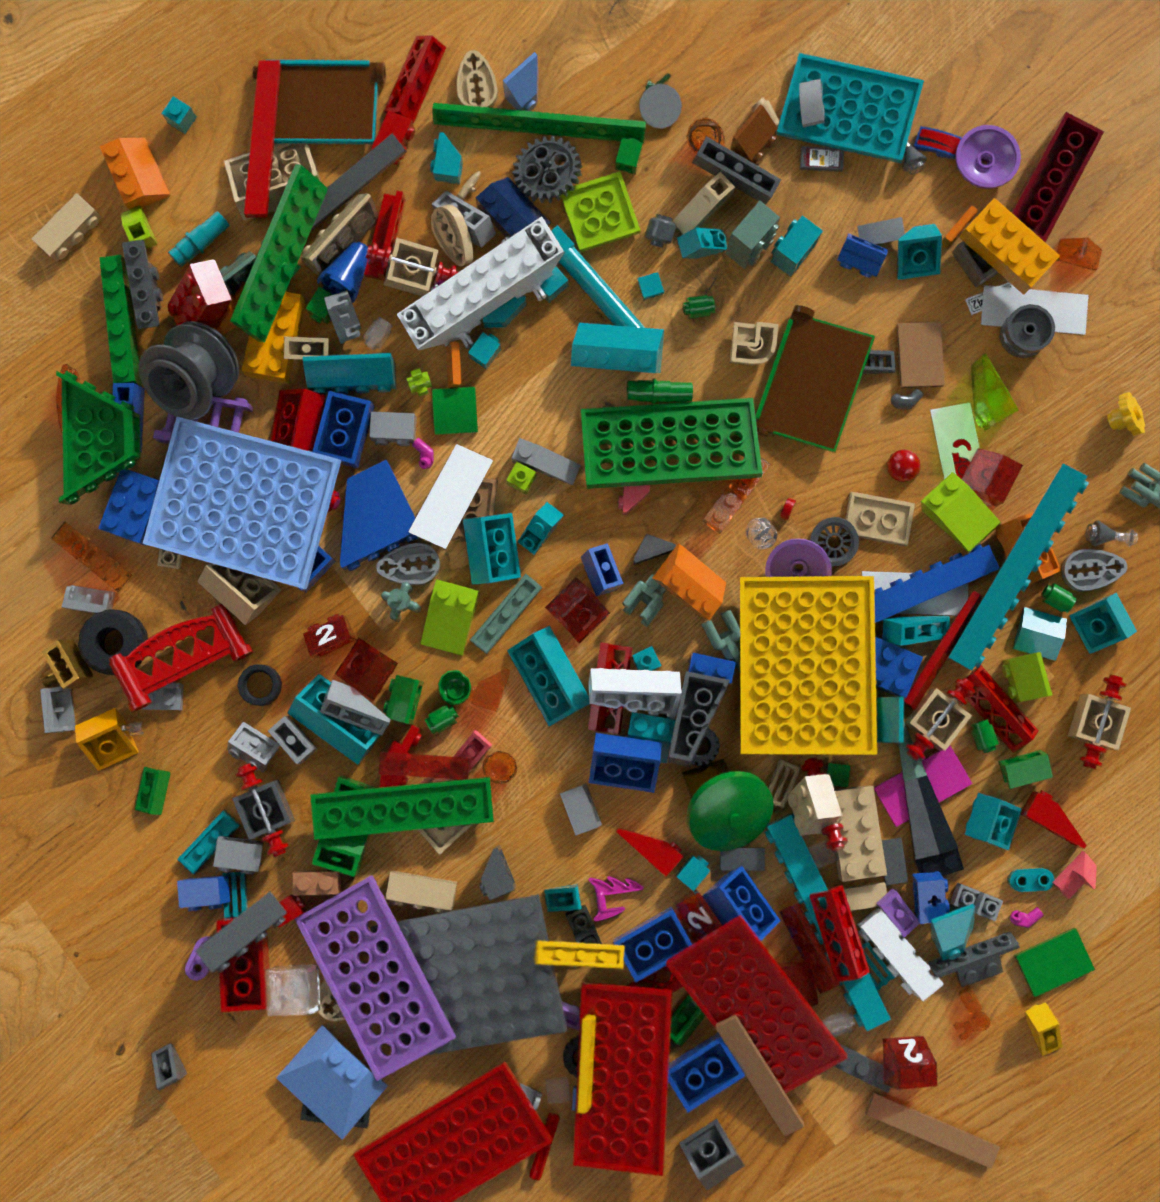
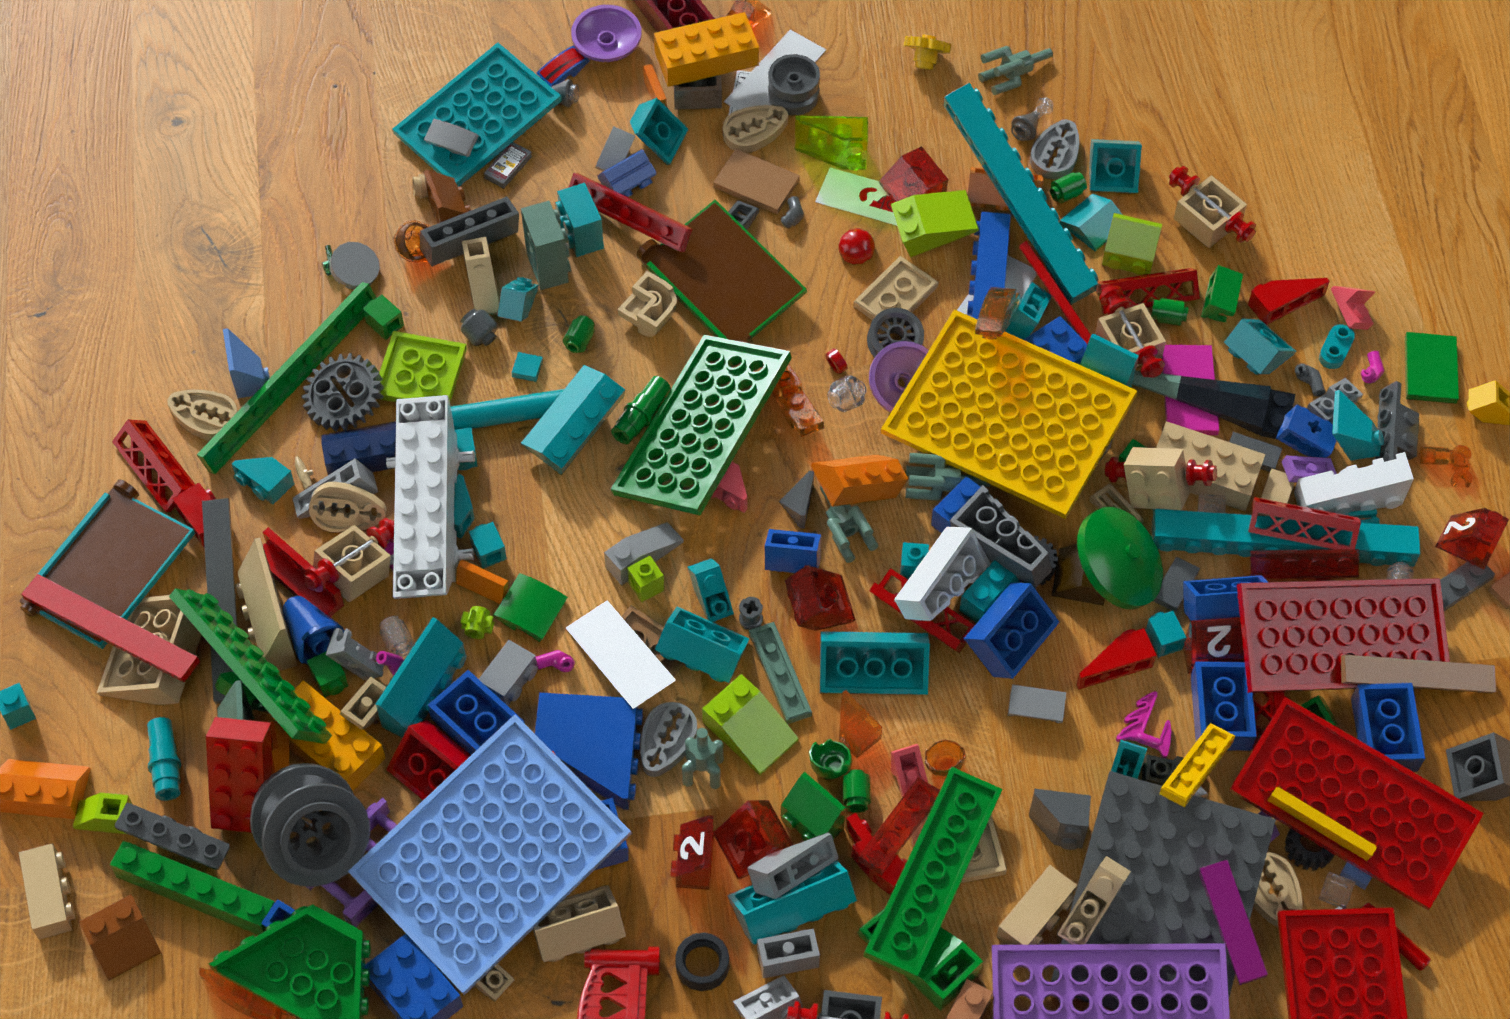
camera: 60 degrees left, 25 degrees down
(63, 297) = (119, 937): none -> dark orange slope
(356, 343) = (390, 660): none -> dark pink arm
(437, 933) = (1094, 902): none -> tan slope
(471, 1036) = (1232, 922): none -> magenta slope
(532, 1059) = (1283, 879): none -> tan piece
(542, 562) = (753, 606): none -> dark grey bush
(826, 278) = (635, 214): none -> red tile
(884, 611) = (996, 312): none -> clear orange slope
(962, 332) = (756, 139): none -> tan piece
(990, 872) = (1312, 377): none -> dark grey arm

